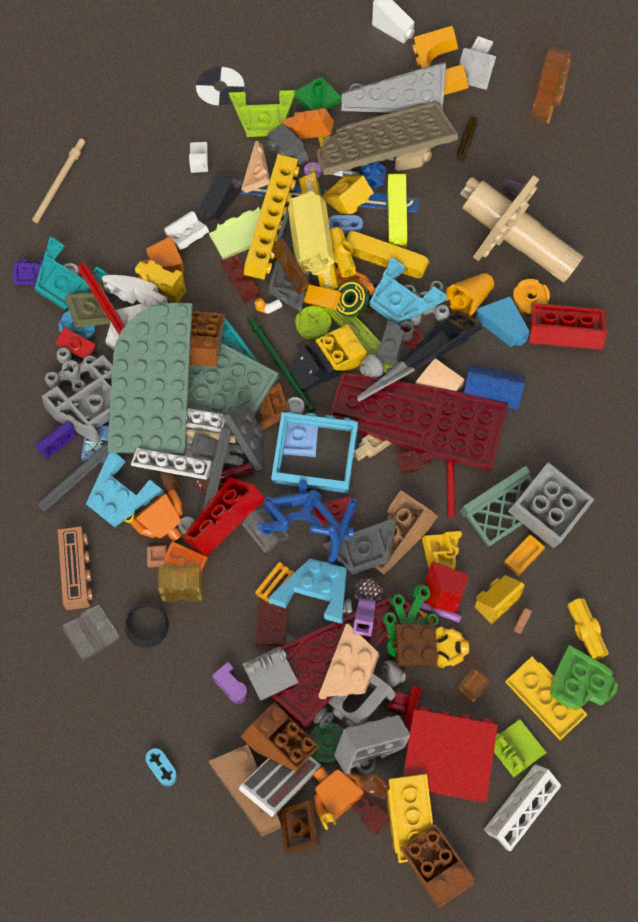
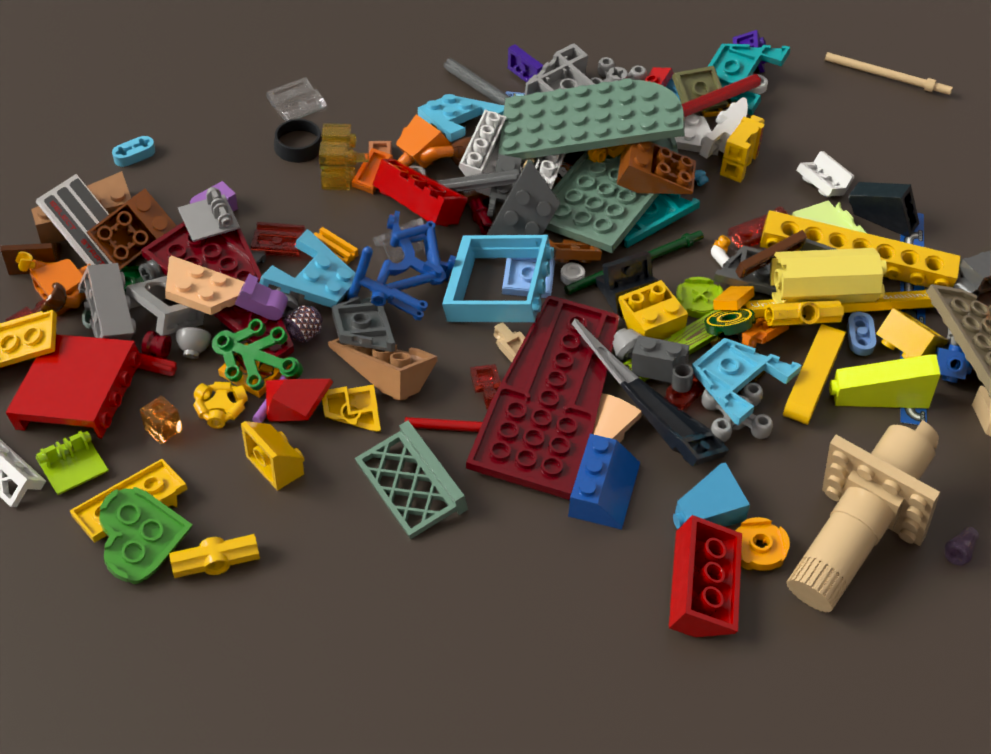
camera: 90 degrees right, 15 degrees down
(73, 568) = (371, 84): nougat brick -> none
(166, 255) = (781, 156): orange torso -> none
(198, 157) = (944, 193): white bracket -> none
(257, 170) = (941, 244): light nougat wing -> none
(336, 507) = (431, 314): red plate -> none
(415, 645) = (219, 355): reddish brown plate -> none
(469, 293) = (756, 462): light orange cone -> none
(522, 620) = (238, 481): nougat tile -> none
(524, 555) = (337, 498): light orange tile -> none
(551, 505) = (398, 520): light grey slope -> none

